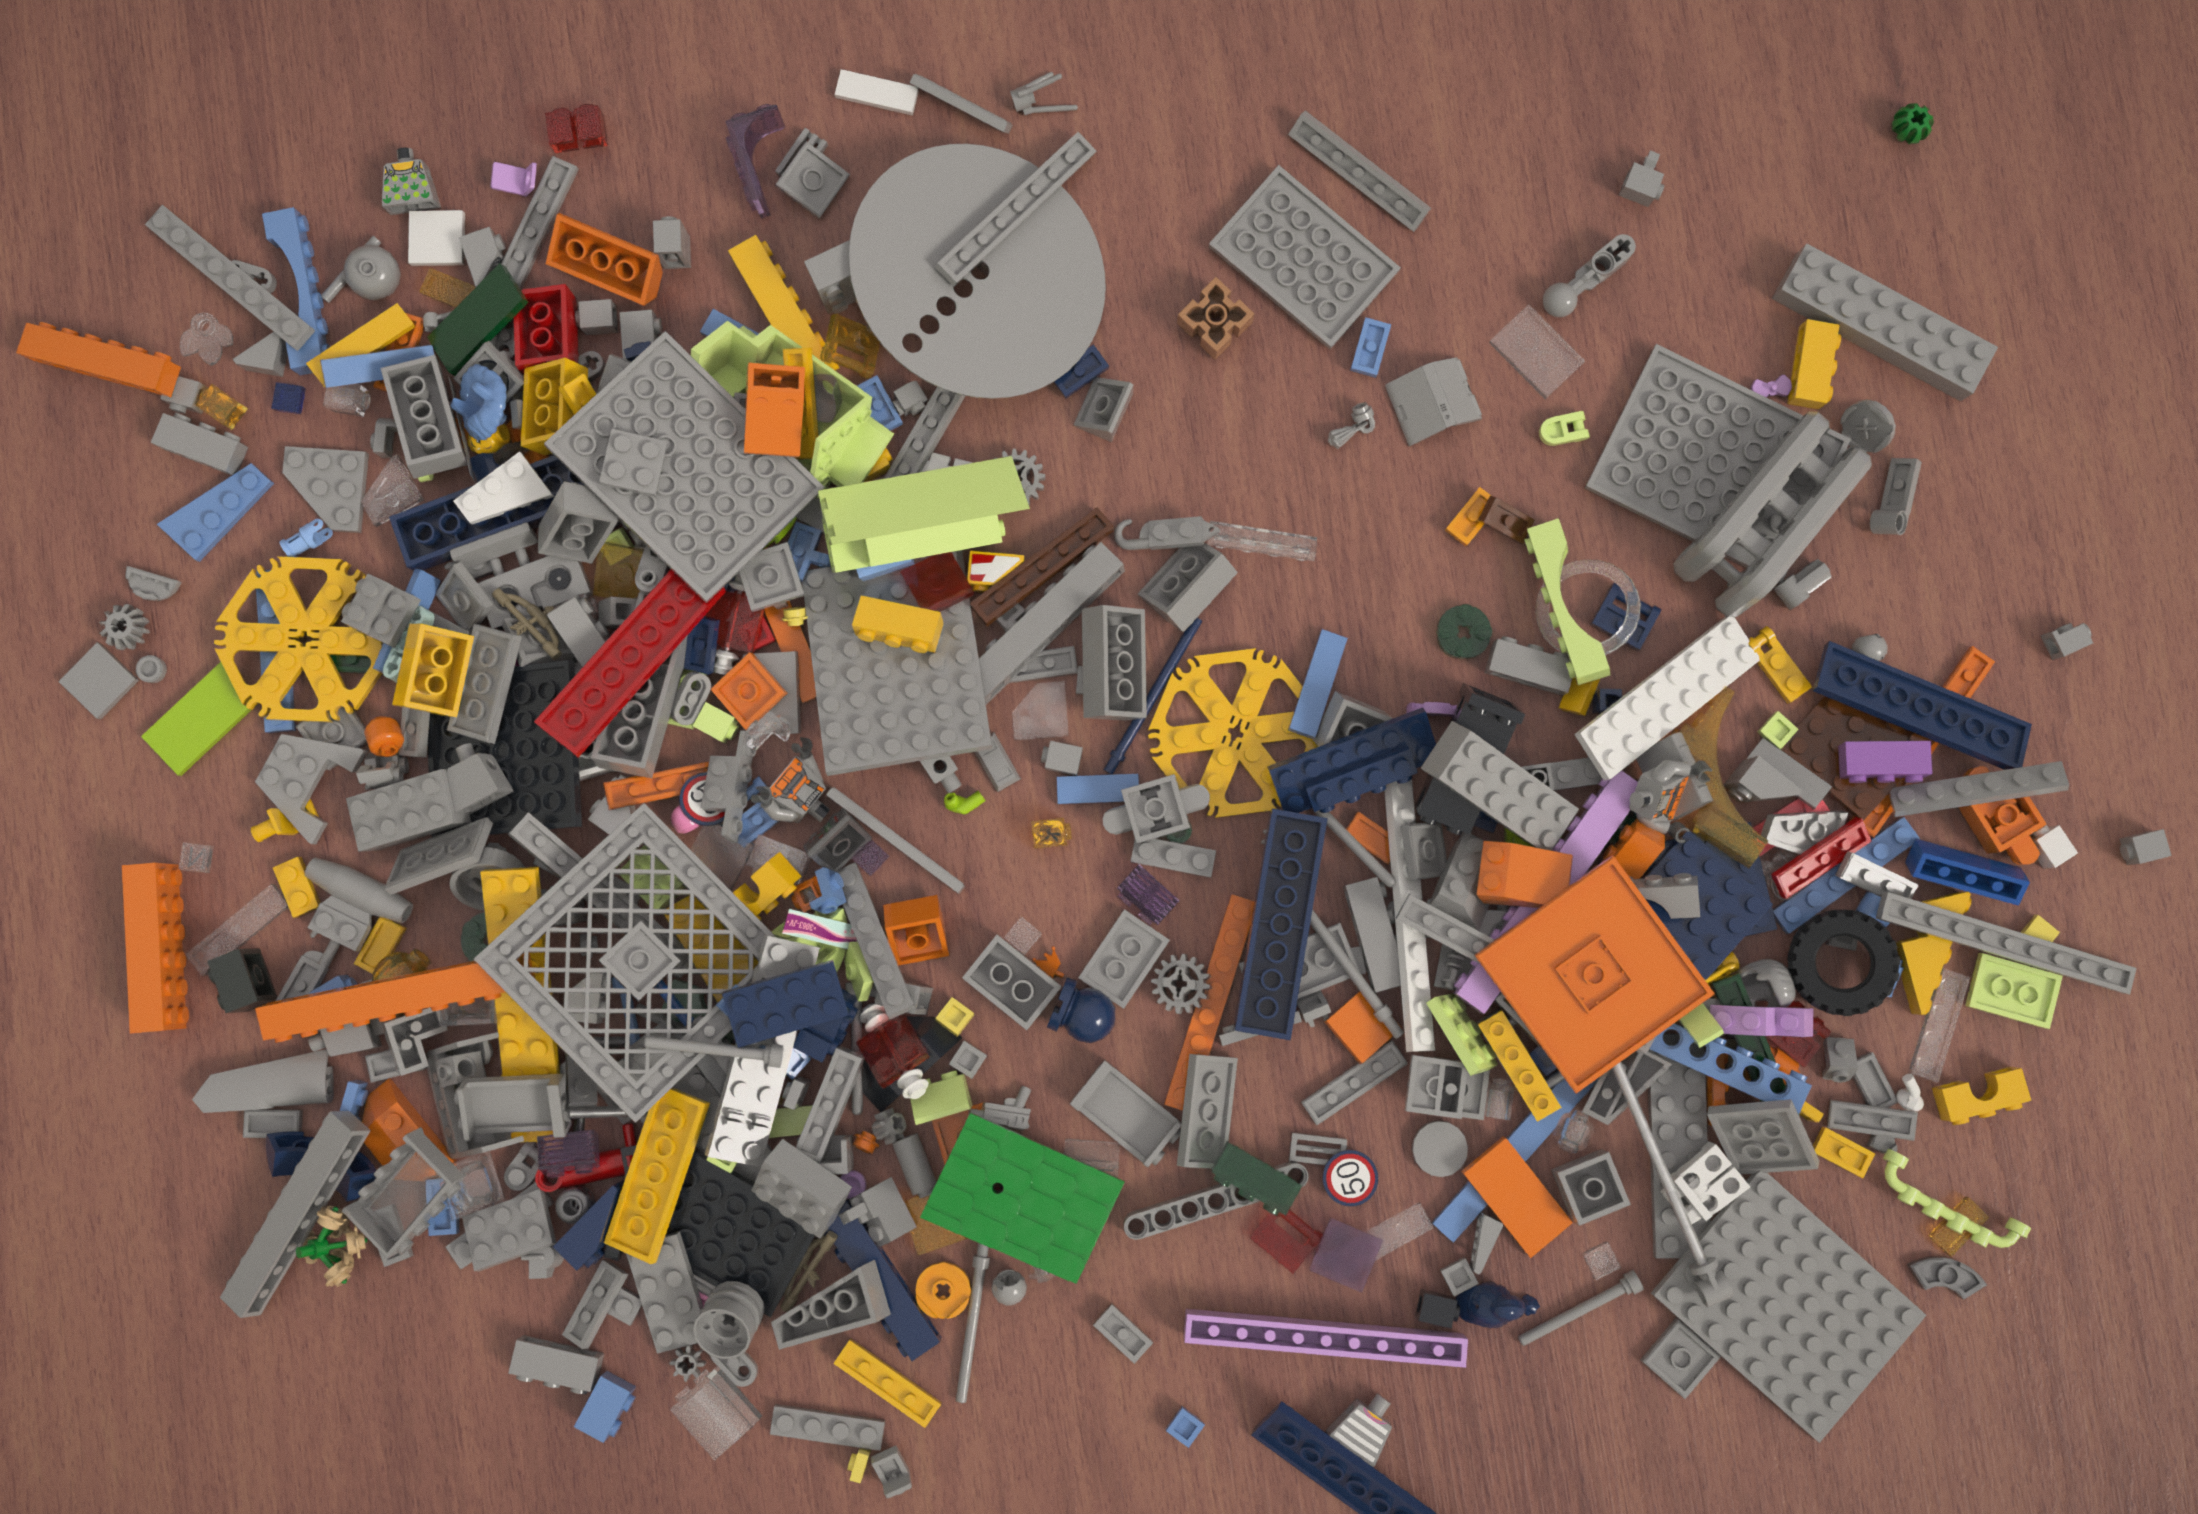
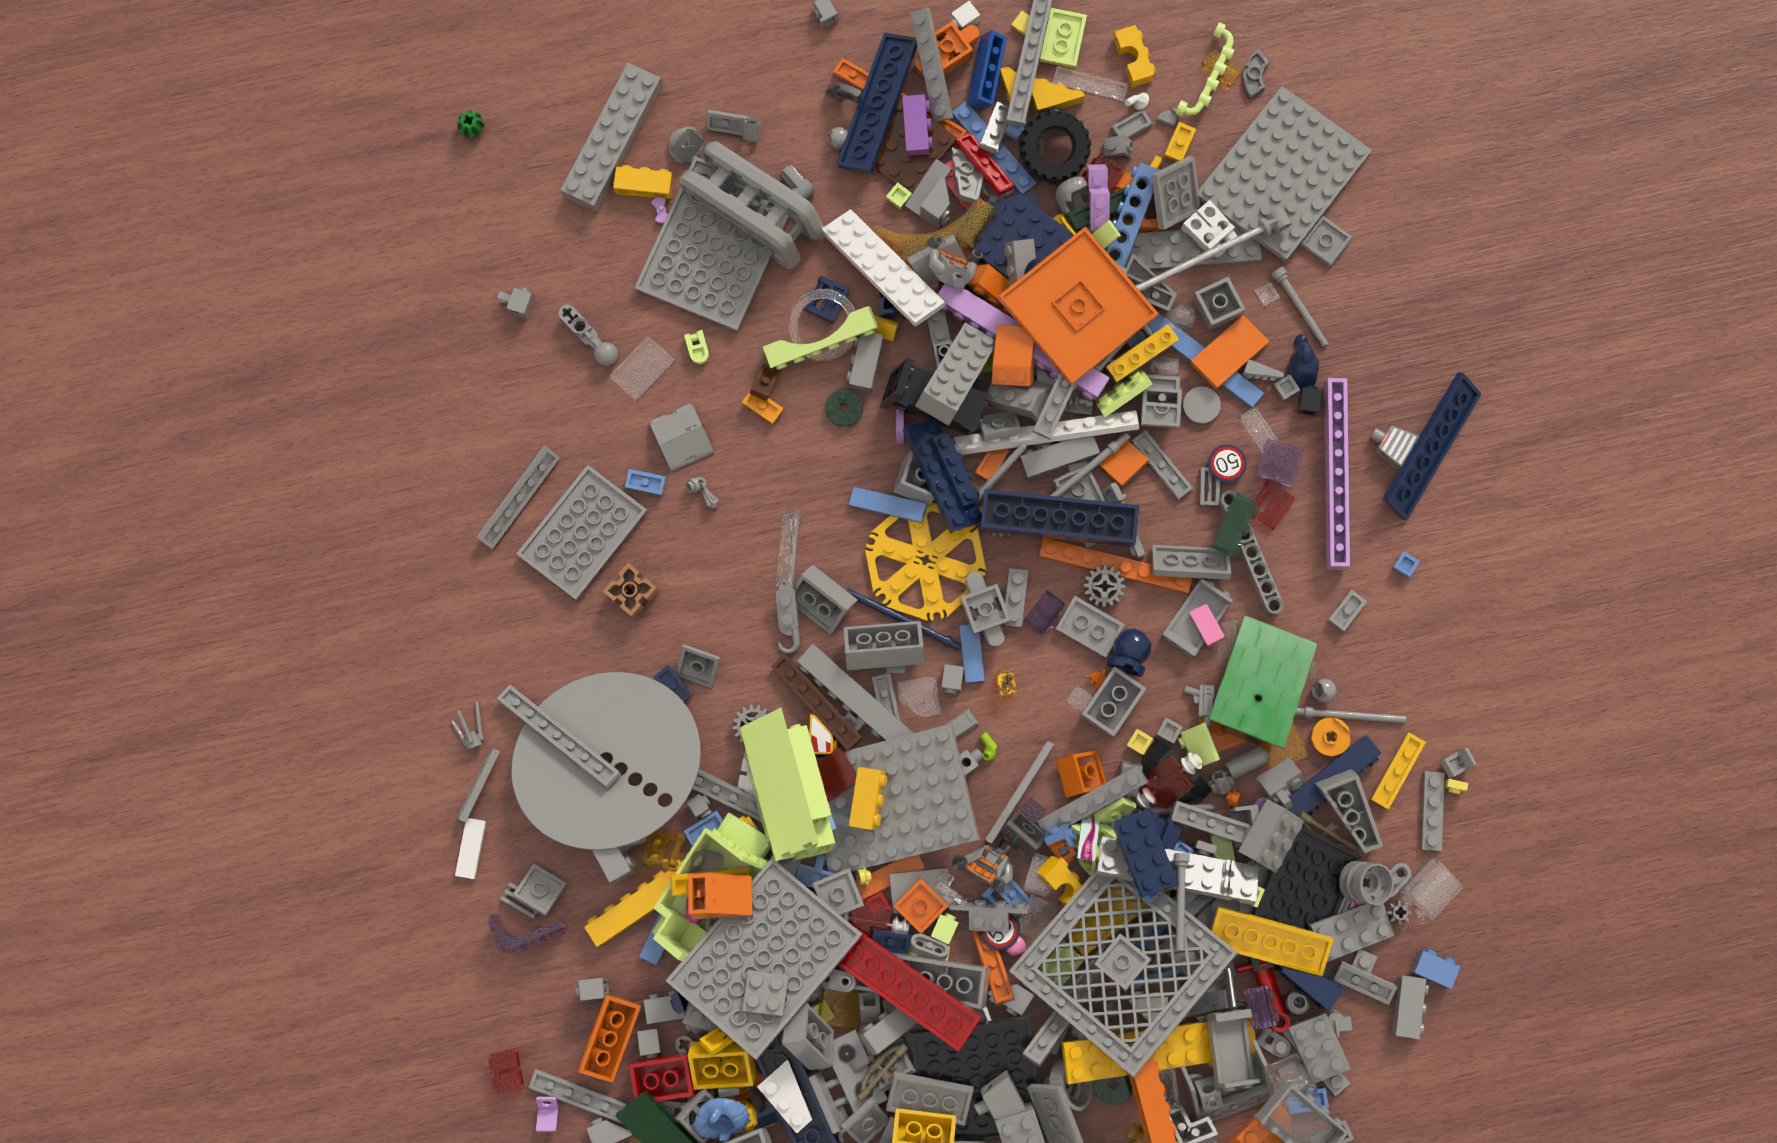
camera: 90 degrees left, 5 degrees down
(1114, 1126) = (1207, 625): none -> bright pink tile
(1779, 666) = (854, 196): yellow plate -> none
(1872, 1119) = (1156, 125): light grey tile -> none
(1940, 659) = (843, 91): none -> flat silver tile

